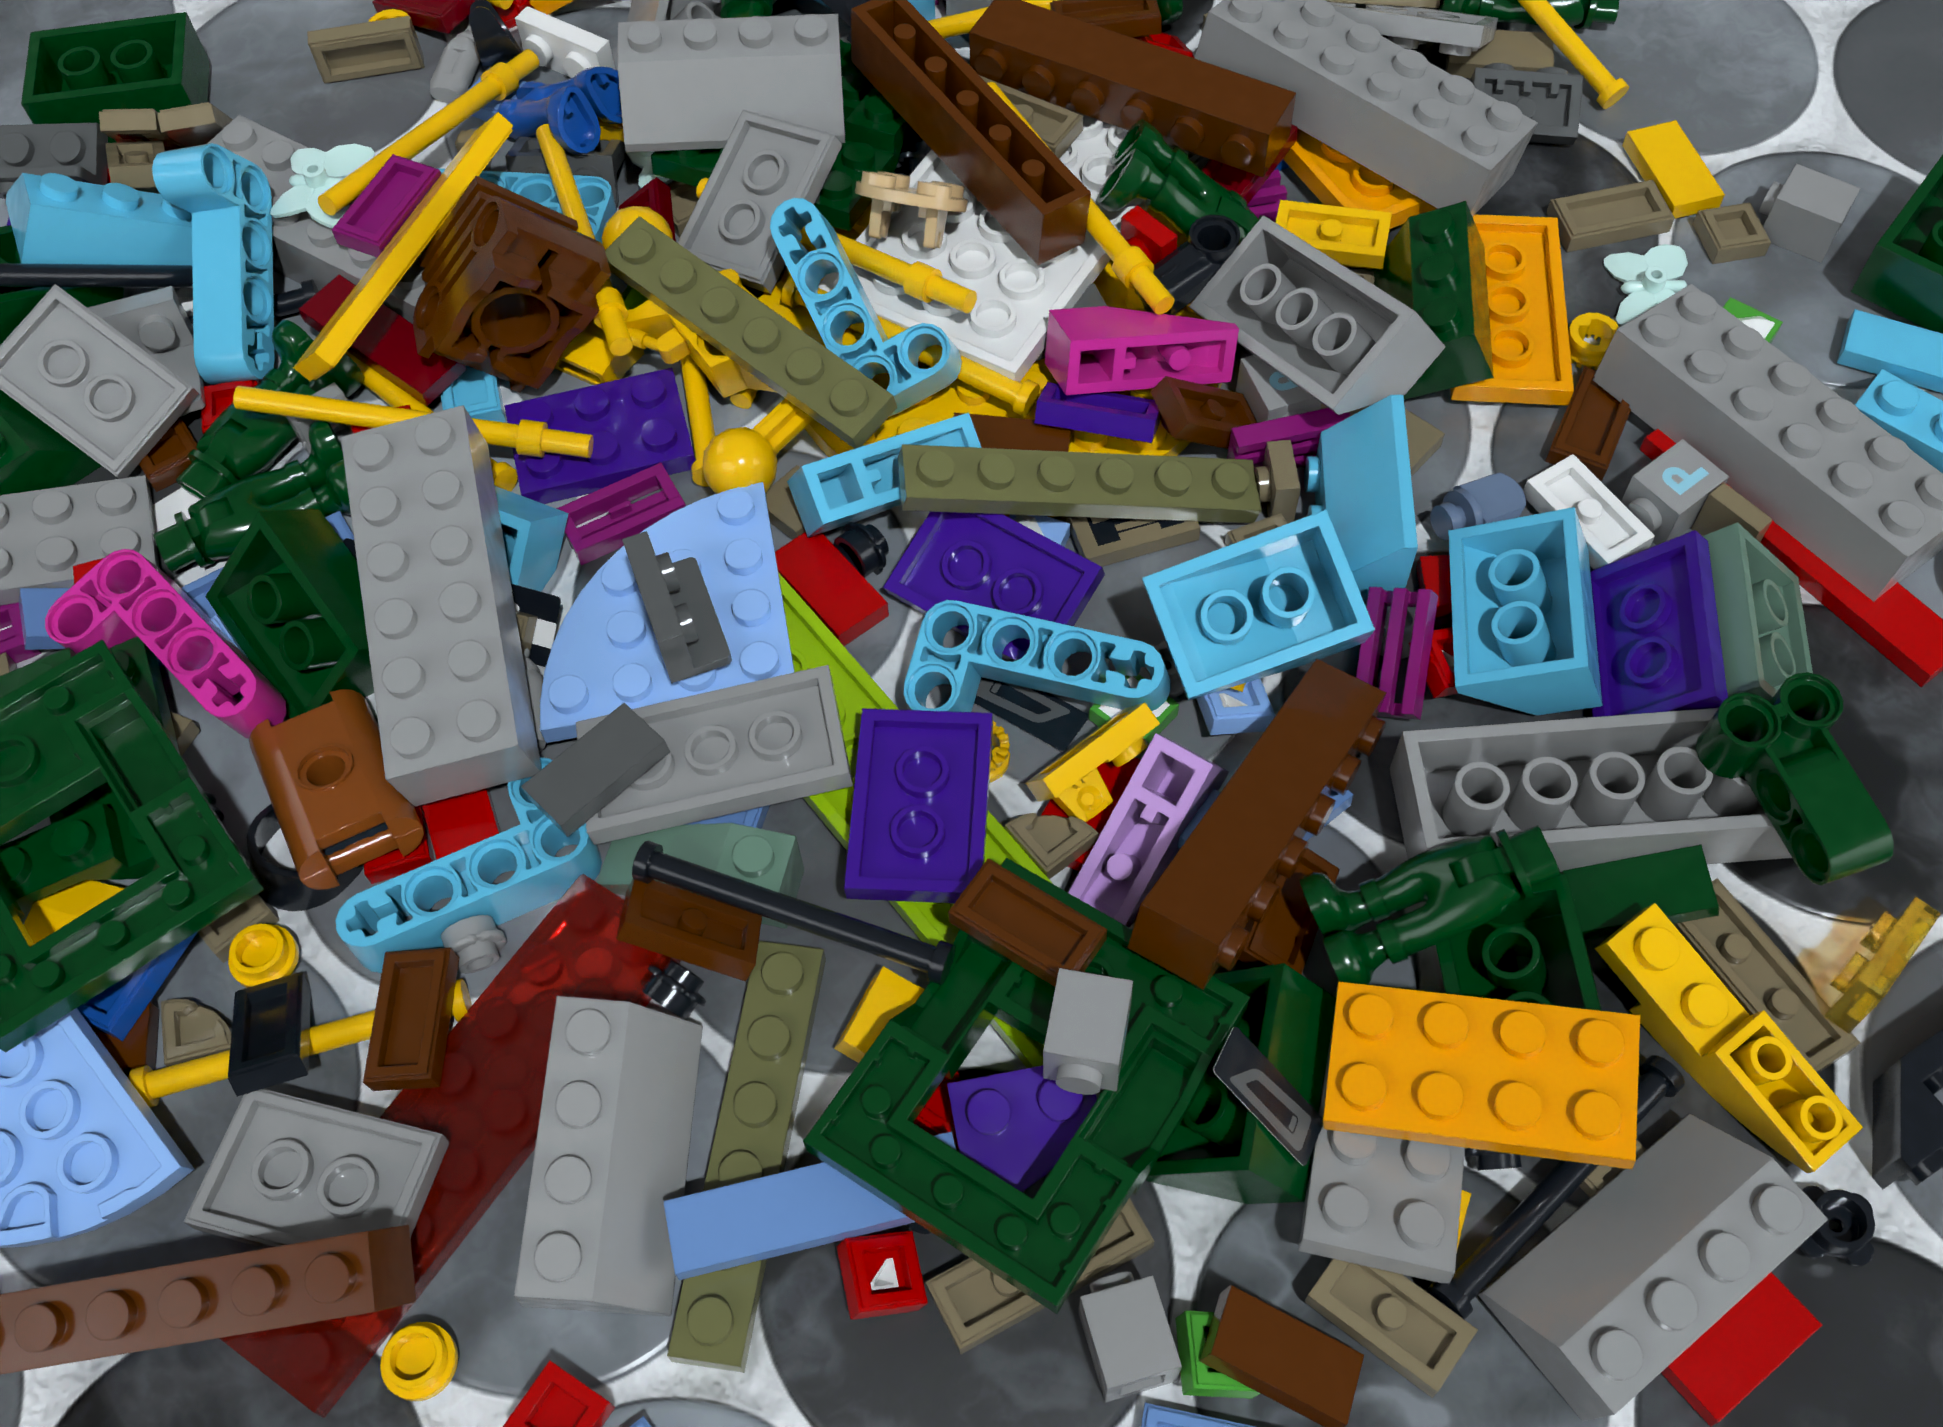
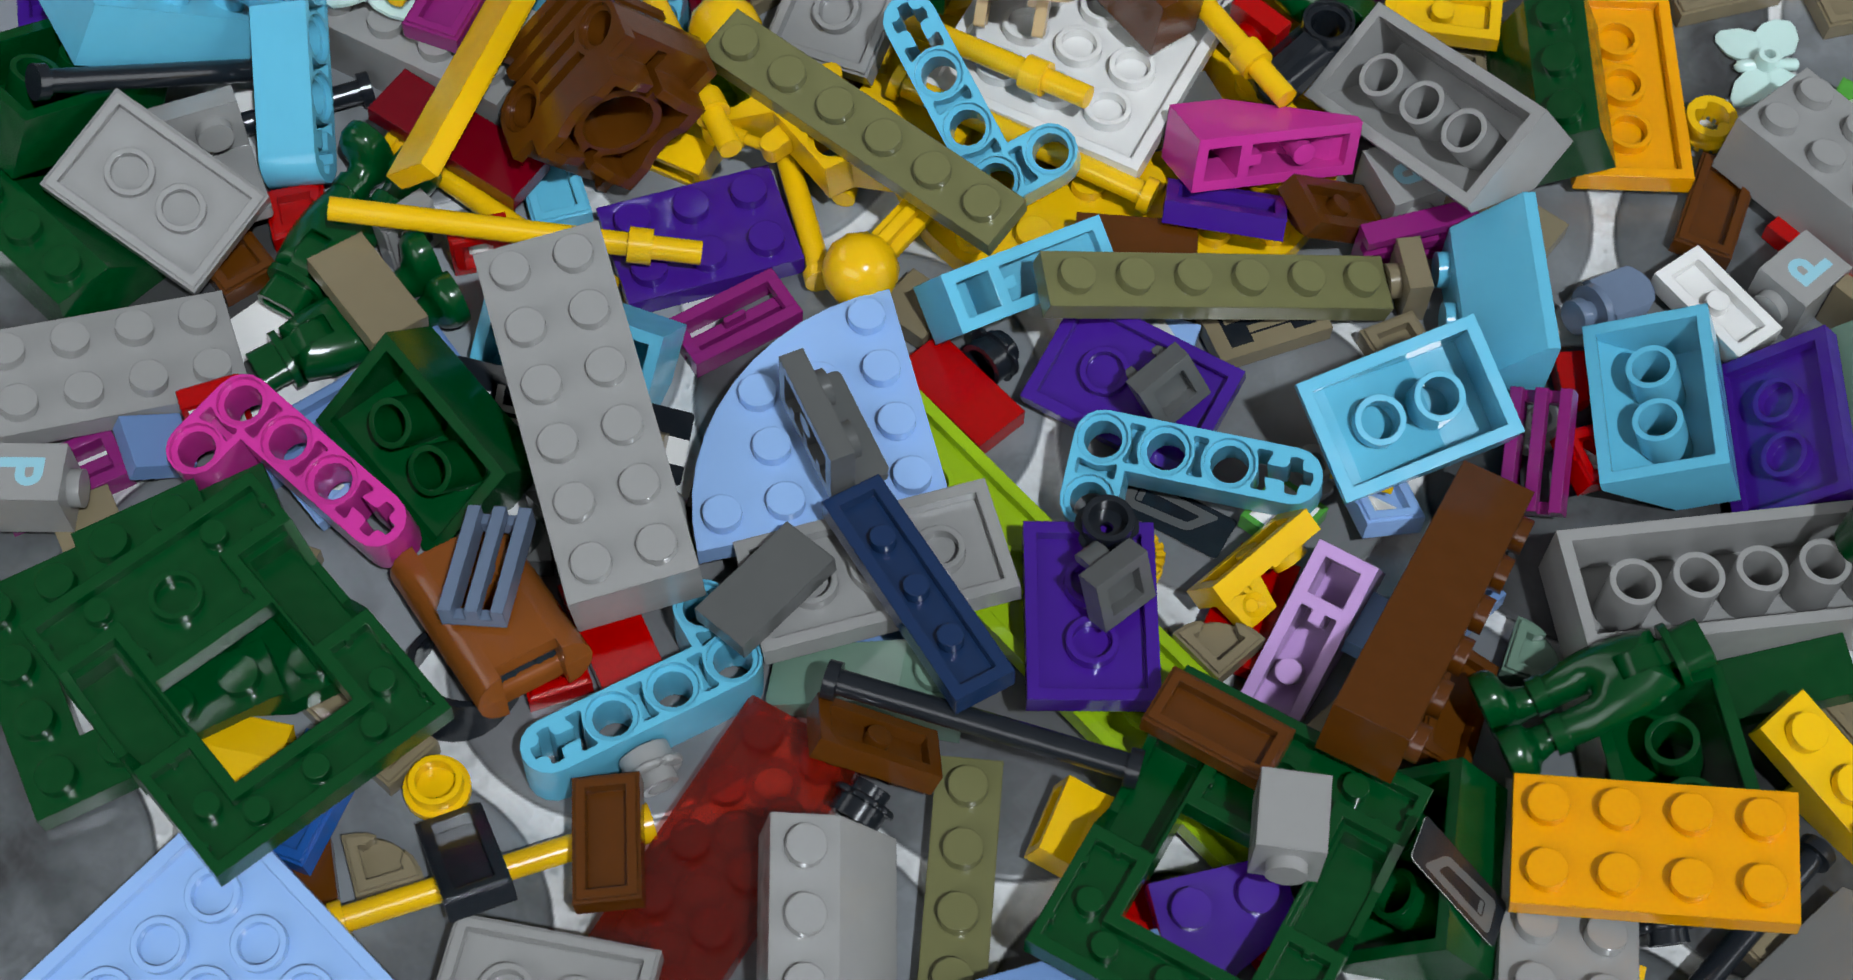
camera: 10 degrees left, 0 degrees up
(266, 471) = (365, 289): none -> dark tan tile
(317, 737) = (495, 525): none -> sand blue tile
(741, 780) = (918, 594): none -> dark blue plate
(939, 700) = (1108, 511): none -> black plate
(940, 771) = (1114, 581): none -> dark grey tile
(1020, 577) = (1167, 384): none -> dark grey tile
(1370, 855) = (1526, 653): none -> sand green tile

